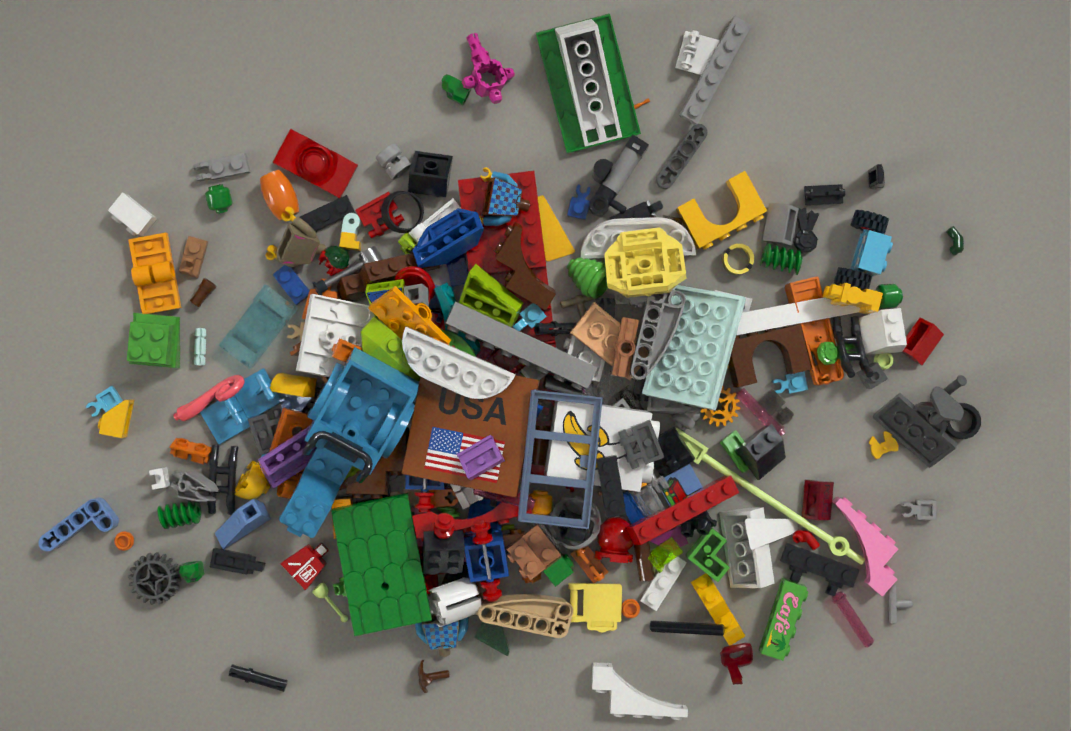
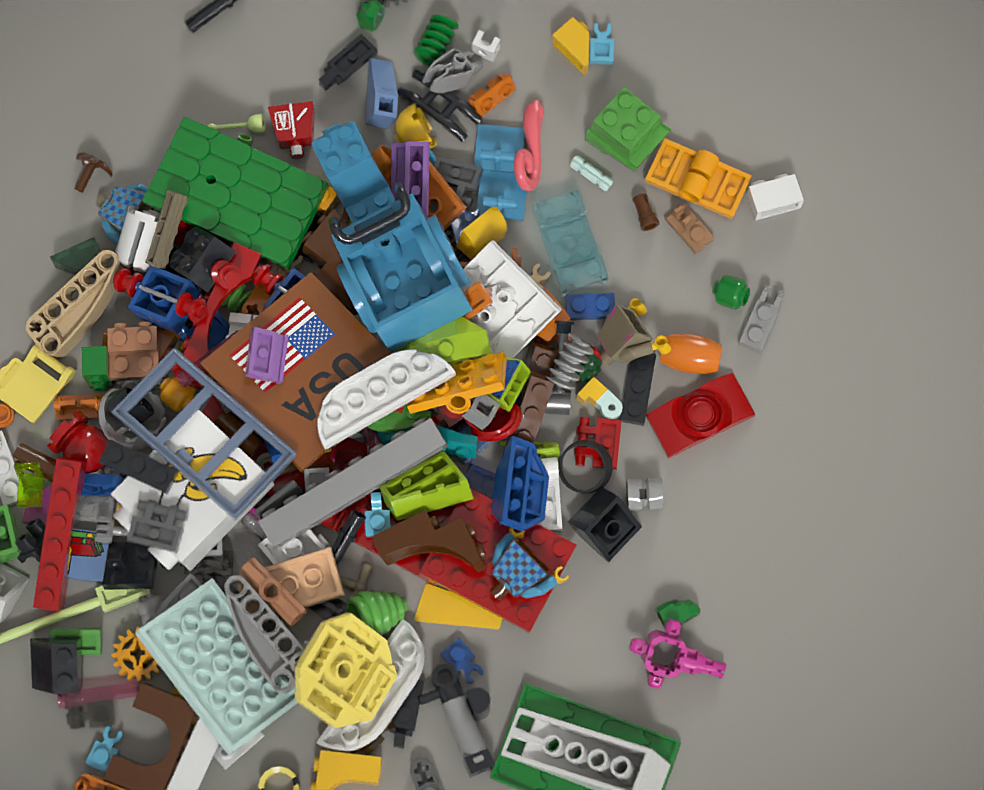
camera: 125 degrees right, 15 degrees down
(342, 261) = (571, 362): none -> light grey piece
(440, 588) = (166, 229): none -> dark tan piece

